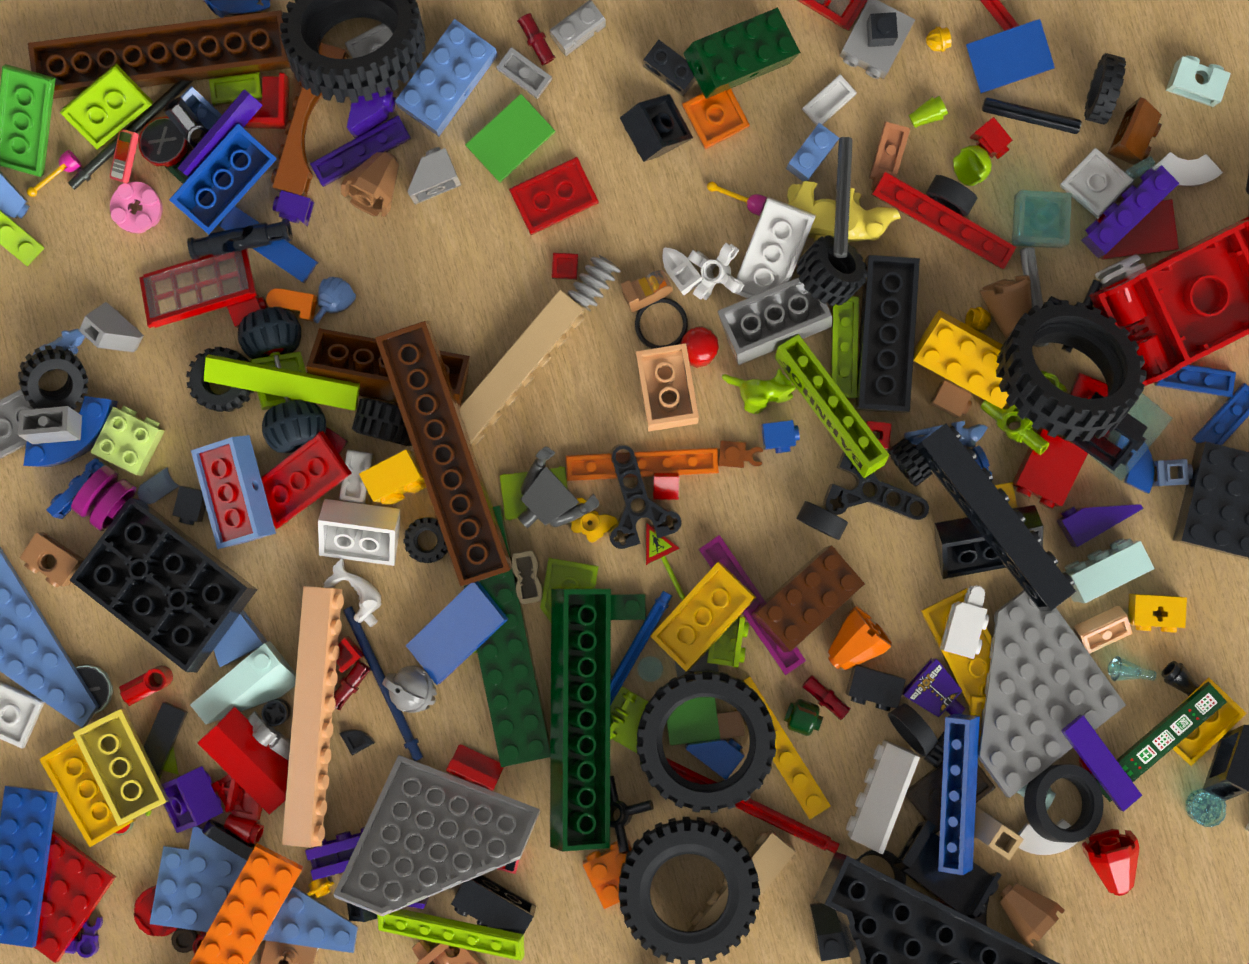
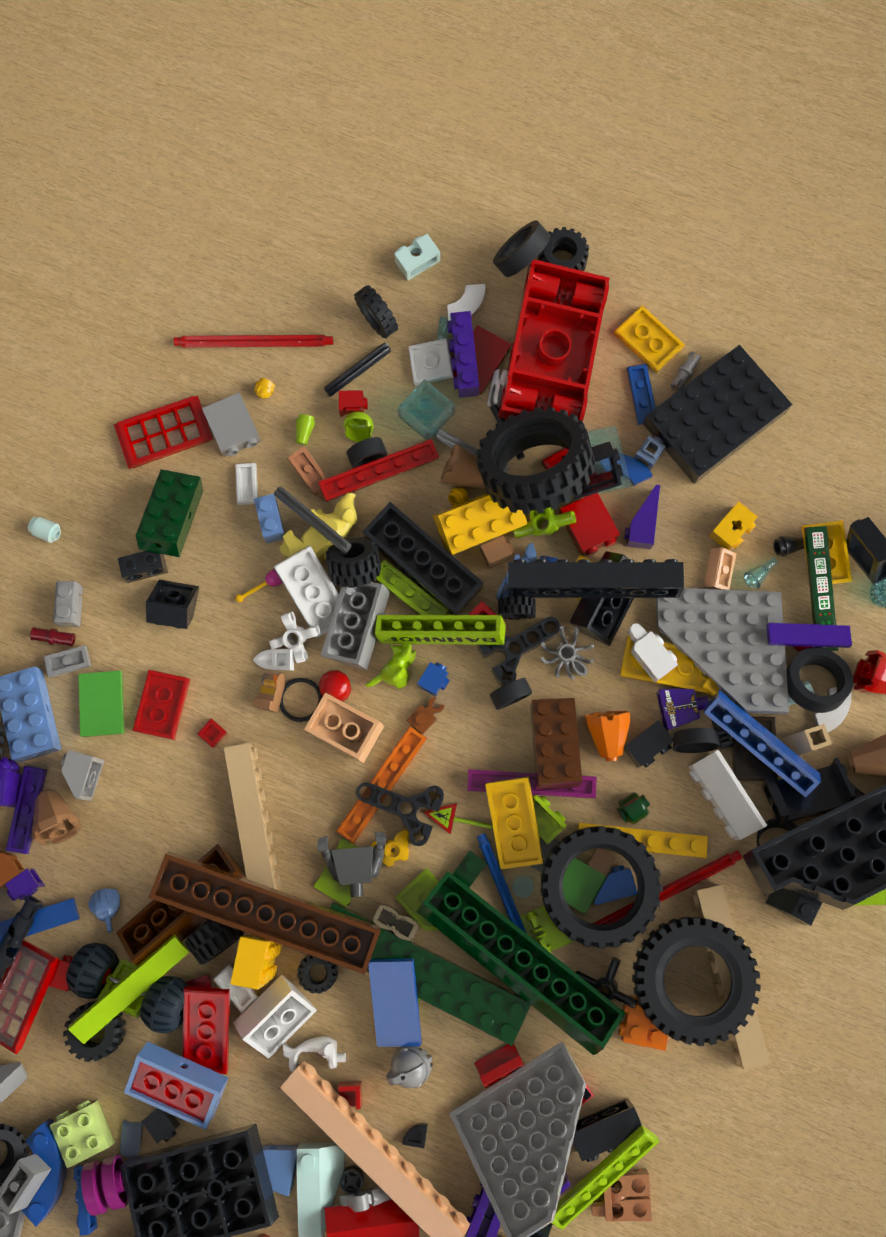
camera: 50 degrees left, 10 degrees down
(294, 301) = (90, 931): orange leg -> none
(350, 684) = (373, 1108): dark red pin -> none
(410, 741) = (447, 1096): dark blue bar -> none
(593, 282) = (236, 722): light grey piece -> none
(666, 486) = (408, 779): red tile -> none
(715, 117) = (197, 561): orange tile -> none
(826, 697) = (631, 782): dark red pin -> none
(882, 29) = (227, 415): black brick -> none
(903, 545) = (567, 655): none -> light grey animal
(1010, 56) = (310, 353): blue tile -> none
(1108, 569) = (684, 534): light aqua brick -> none
(1135, 132) = (418, 314): reddish brown slope -> none
(1201, 380) = (605, 391): blue tile -> none

